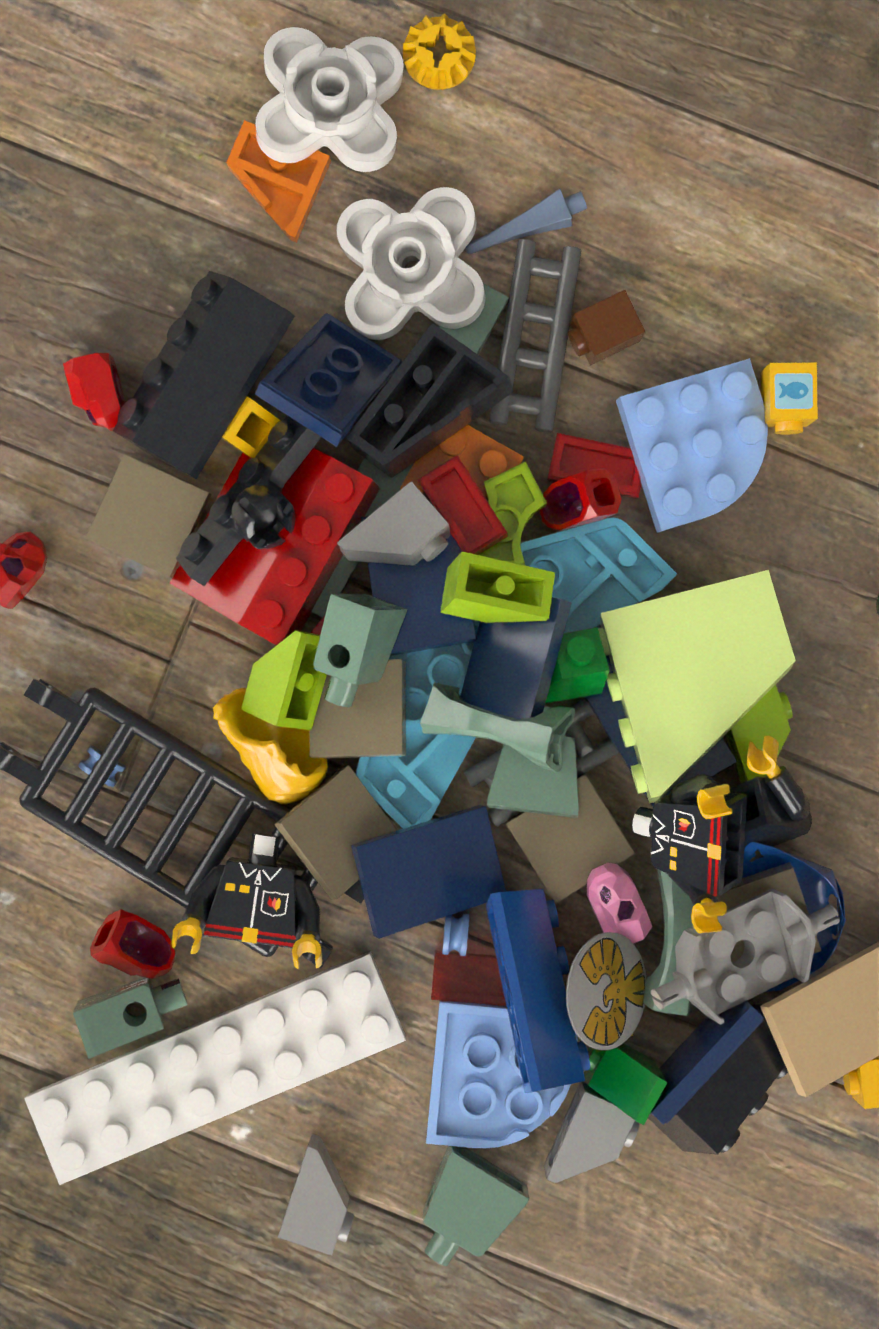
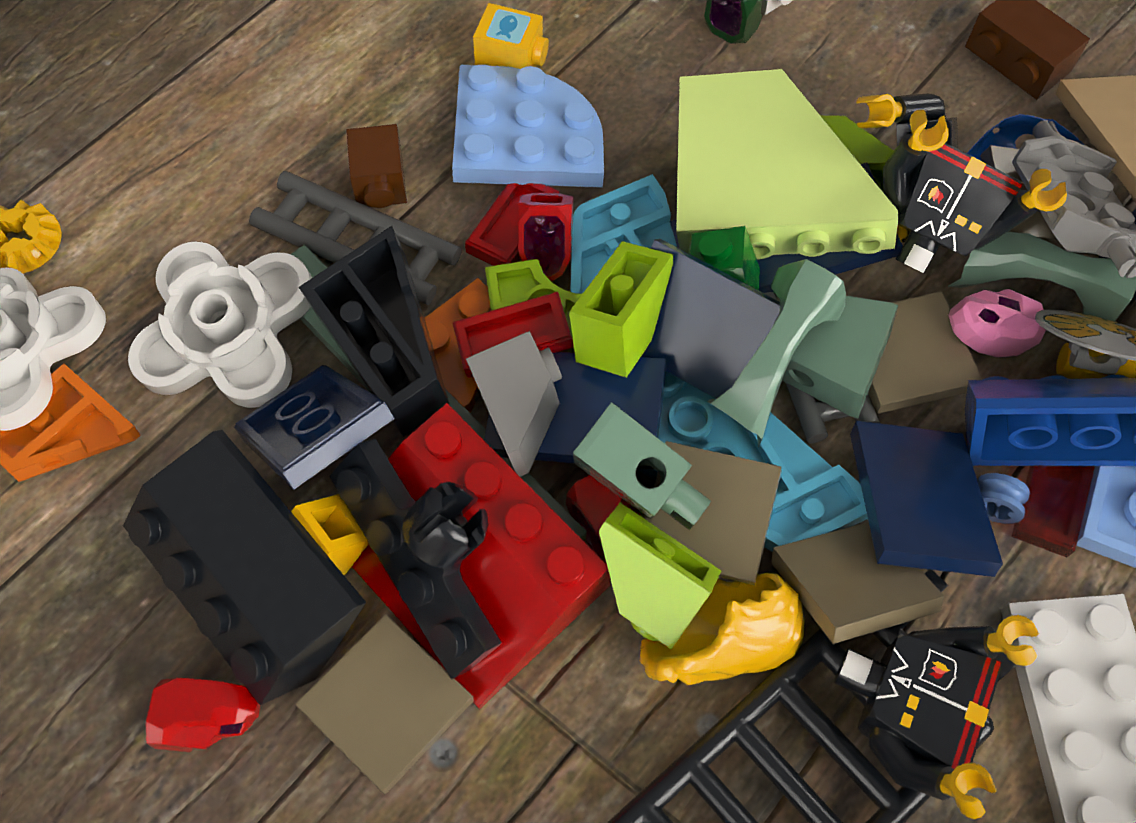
camera: 75 degrees left, 25 degrees down
(548, 215) = (238, 192): sand blue piece -> none

